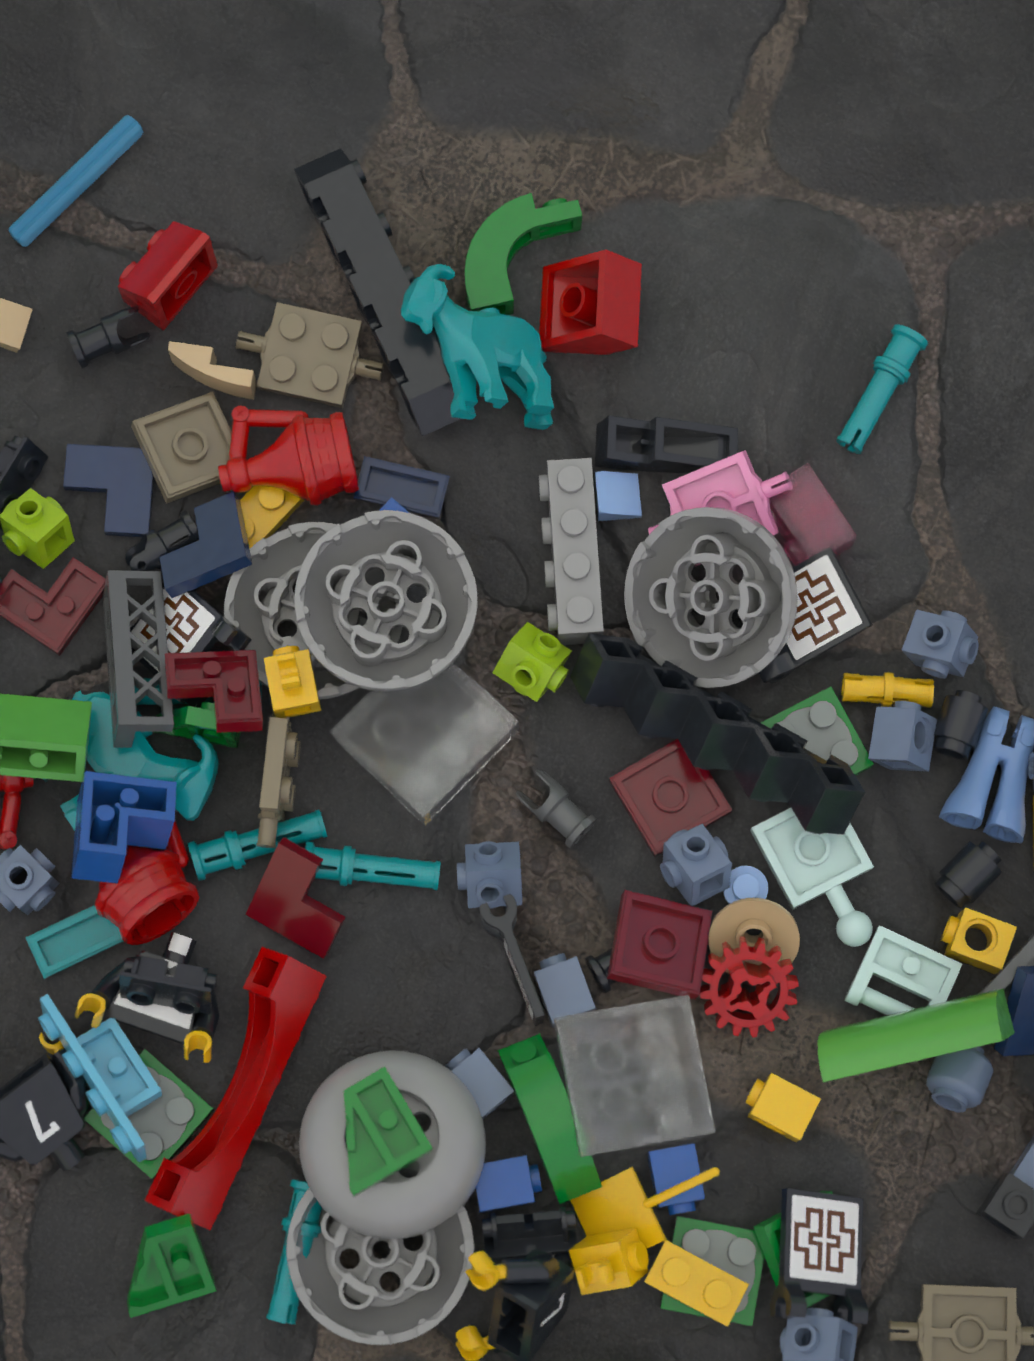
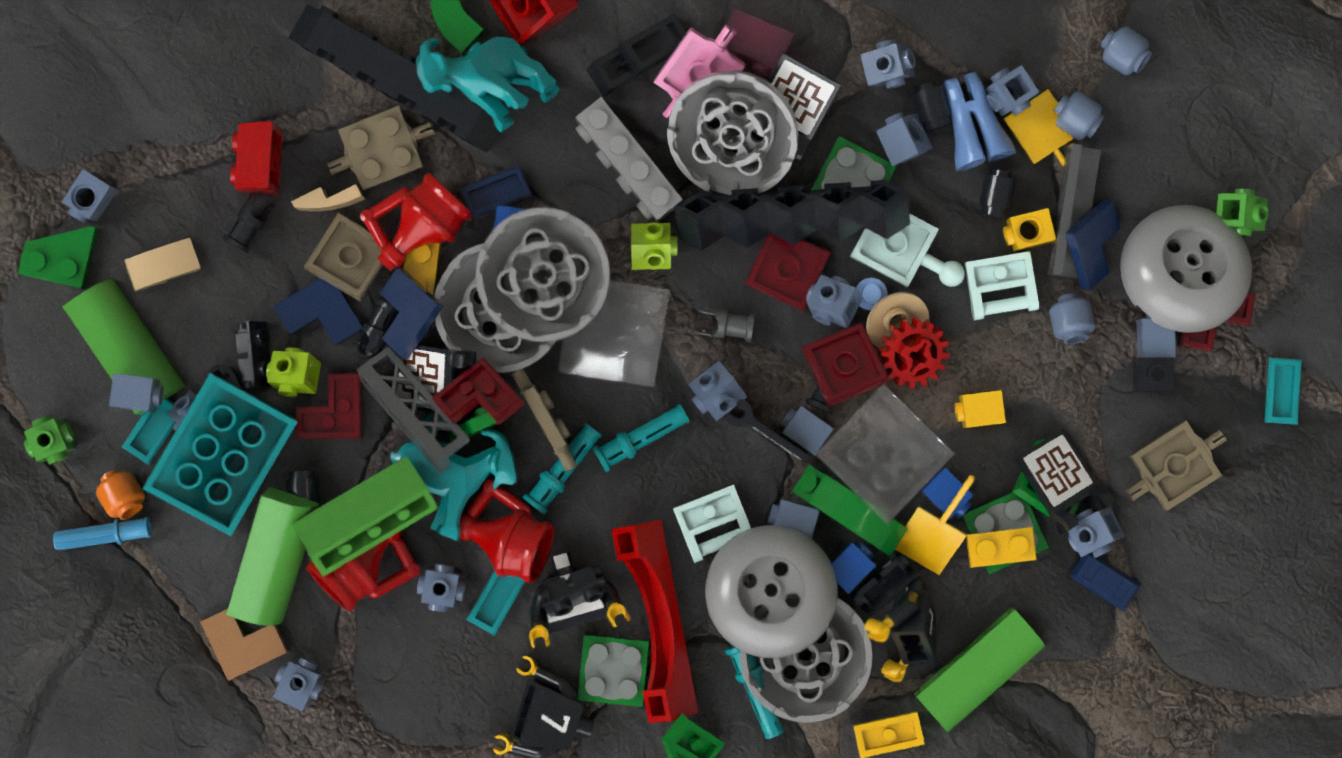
camera: 30 degrees left, 10 degrees up
(76, 181) = (156, 137): dark azure axle -> none
(111, 1069) = (575, 662): medium azure bracket -> none
(116, 814) = (472, 513): blue brick -> none
(284, 904) = (610, 495): dark red tile -> none
(291, 682) = (519, 361): yellow brick -> none
(379, 1131) = (763, 593): green wing -> none
(381, 1008) = (709, 513): none -> light aqua plate
(609, 1261) = (942, 569): yellow brick -> none
(617, 495) = (629, 106): light blue slope -> none
(886, 689) = (874, 114): yellow pin -> none
(914, 1035) = (1032, 316): bright green brick -> none

